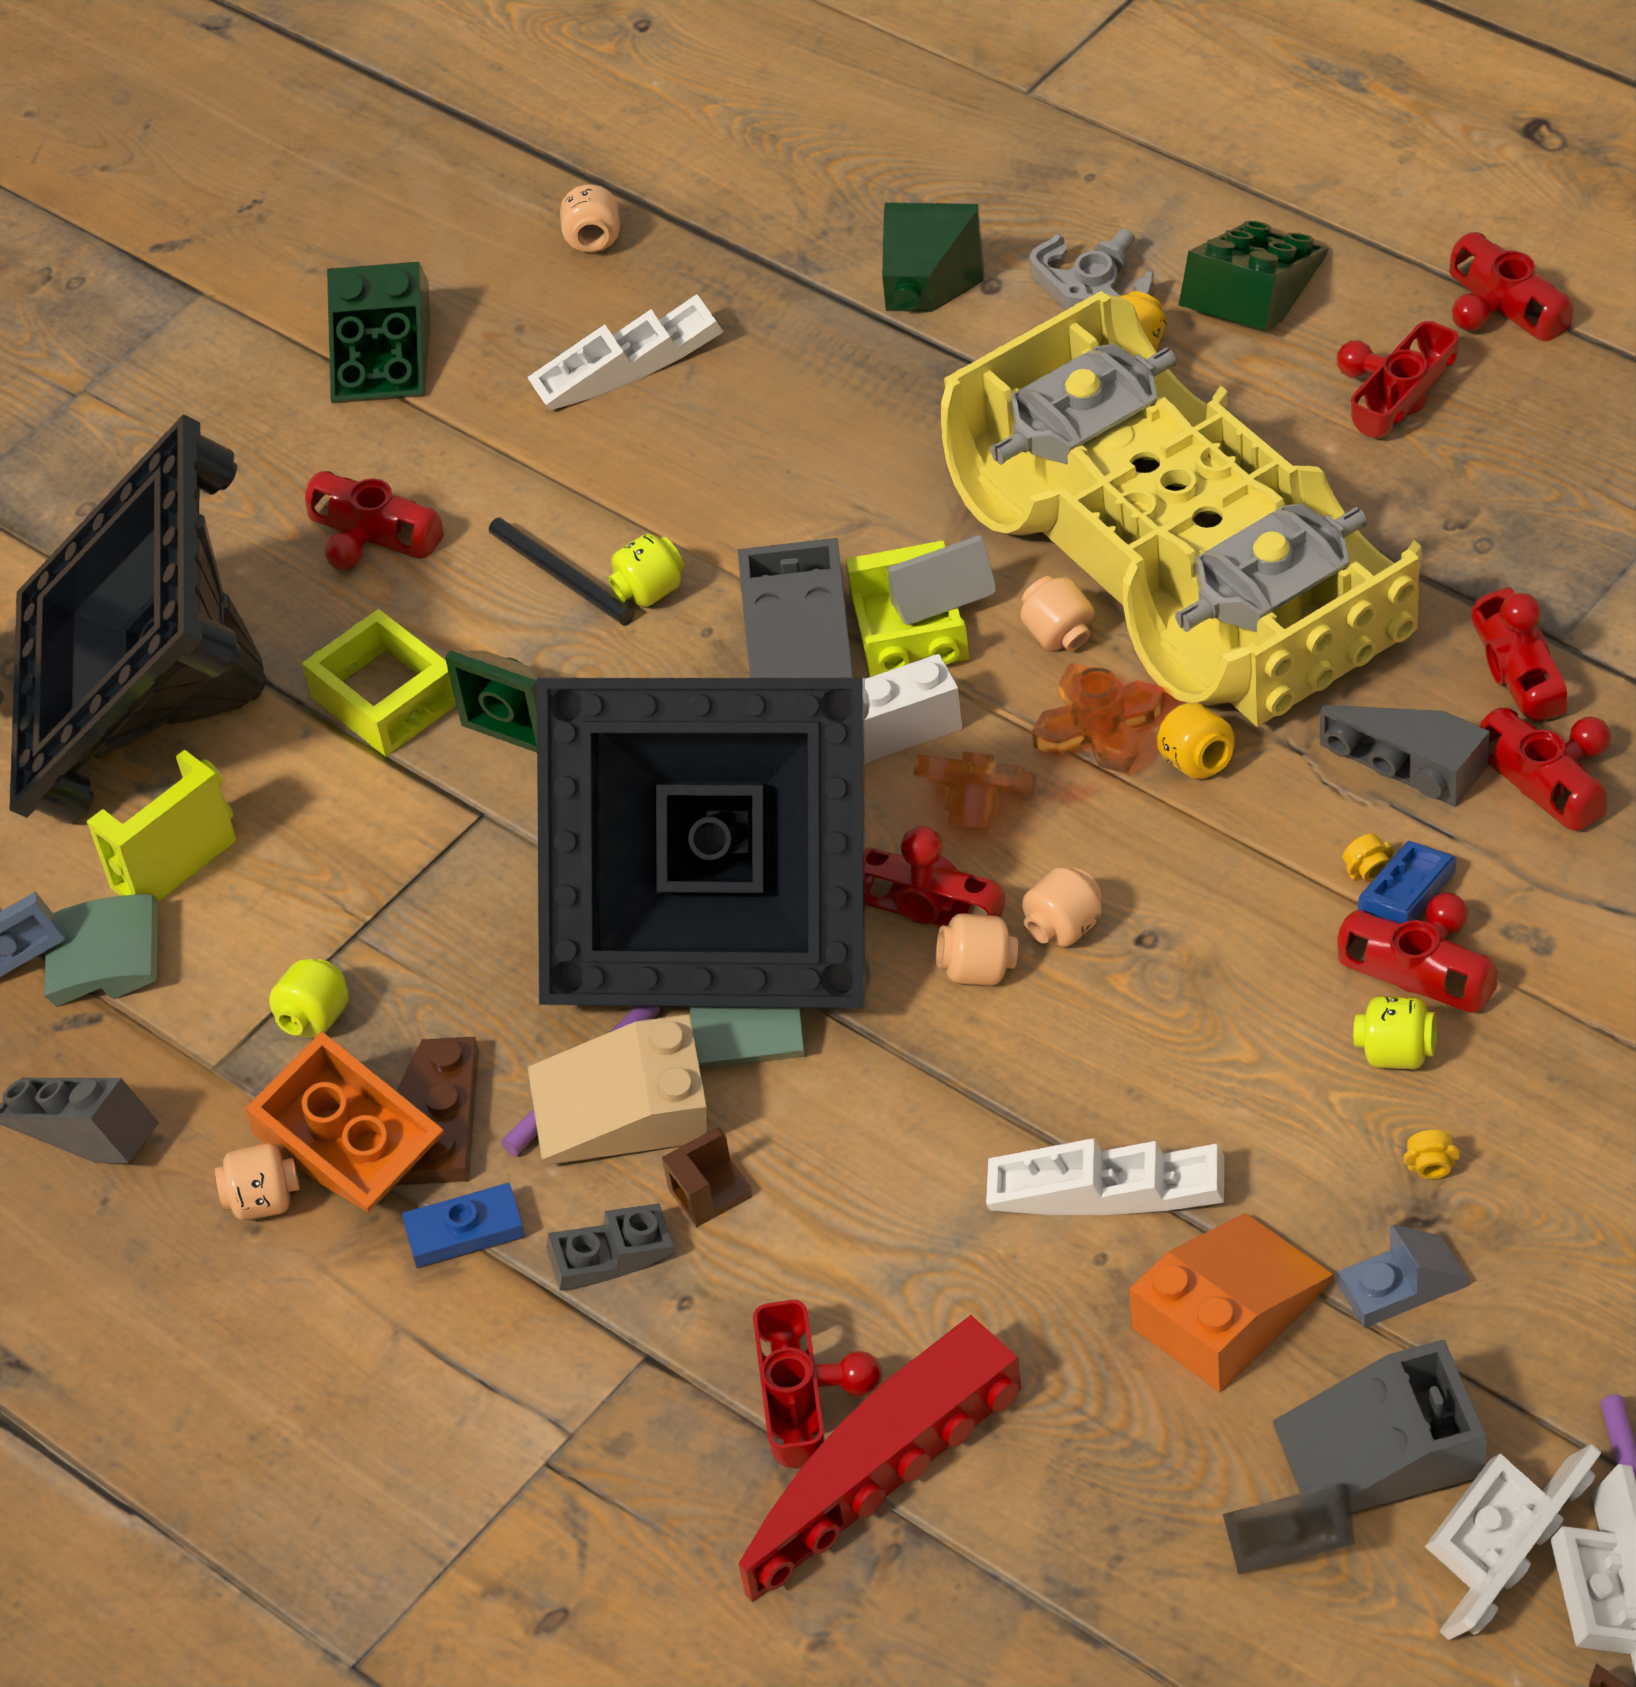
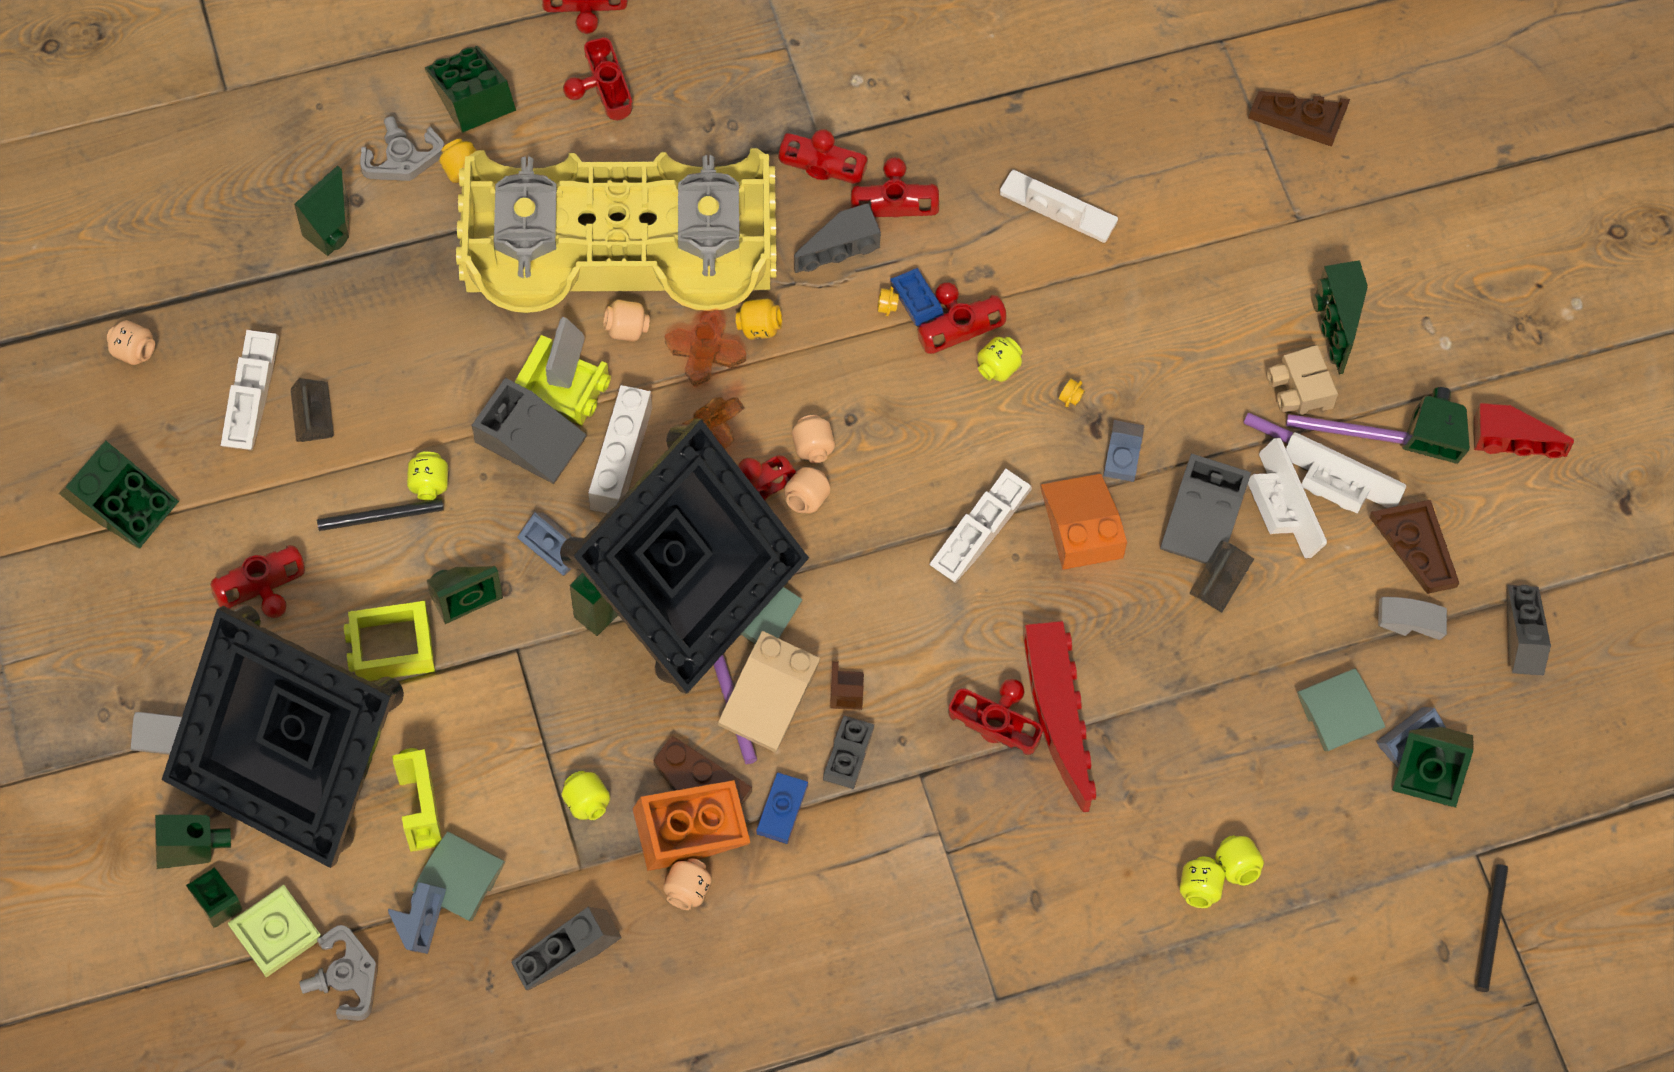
camera: 65 degrees left, 15 degrees up
(652, 424) = (311, 410): none -> clear smoke slope

